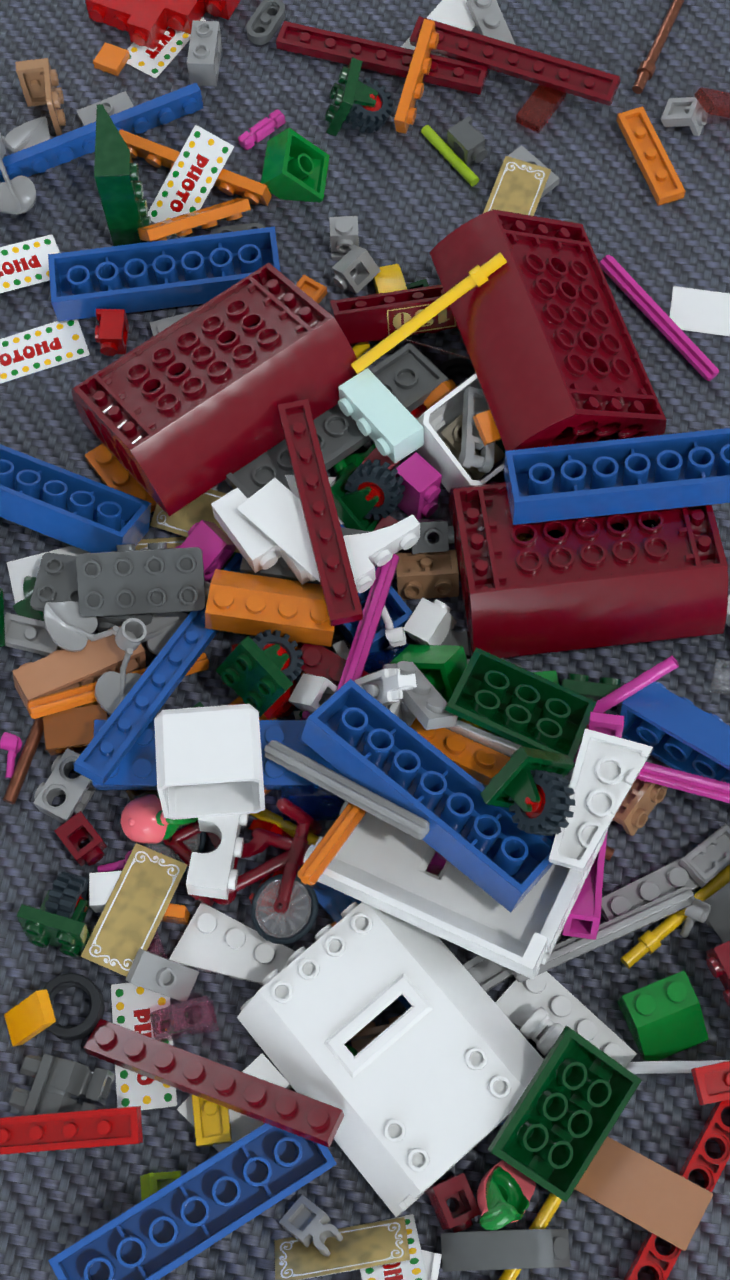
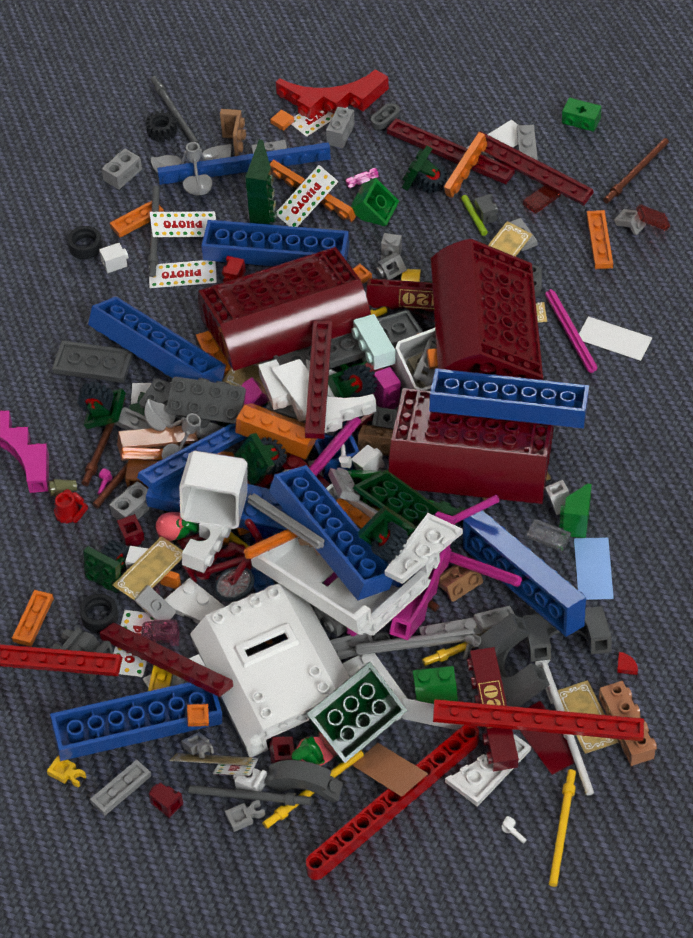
camera: 15 degrees right, 15 degrees down
(30, 1017) = (74, 609): light orange tile -> none
(204, 217) = (311, 219): orange plate -> none
(299, 1184) = (197, 715): none -> orange tile
(387, 685) = (327, 474): white hinge -> none
(477, 276) = (448, 273): yellow bar -> none

